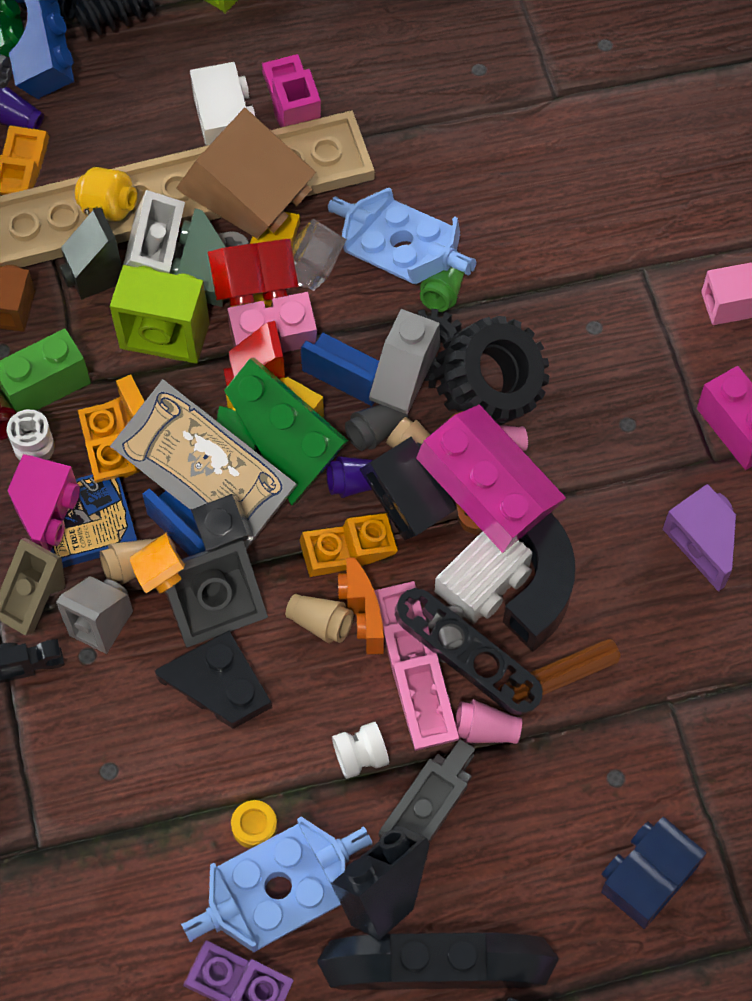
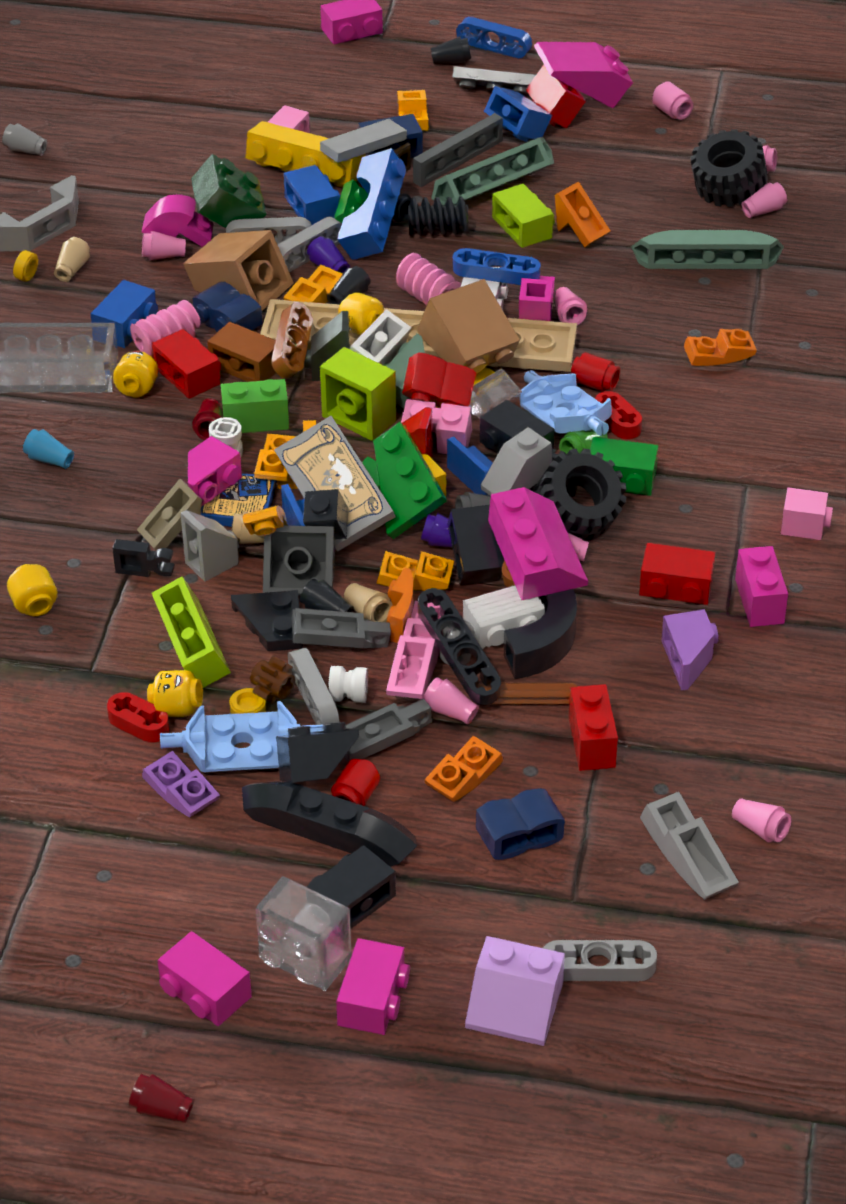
camera: 25 degrees right, 20 degrees down
(46, 287) = (284, 347): none -> dark orange beam
(59, 147) = (352, 281): none -> black cone
(137, 890) = (135, 720): none -> red beam
(142, 757) = (190, 632): none -> lime brick
(152, 114) = (423, 278): none -> bright pink piece
(167, 853) = (176, 693): none -> yellow head
(219, 79) = (478, 263): none -> blue beam
(271, 634) = (321, 596): none -> black cone
(271, 783) = (272, 679): none -> reddish brown gear
(307, 675) = (338, 629): none -> dark grey hinge
(323, 774) = (312, 687): none -> light grey beam
(333, 87) = (569, 306): none -> bright pink cone
(363, 299) = (506, 422): none -> black brick
(407, 173) = (595, 372): none -> red brick
(444, 898) = (356, 781): none -> red brick
(468, 220) = (621, 412): none -> red beam
(511, 292) = (633, 459): none -> green brick
(527, 83) = (726, 348): none -> orange slope
(548, 815) = (465, 771): none -> orange slope
(642, 435) = (677, 573): none -> red brick
(664, 698) = (593, 727): none -> red brick

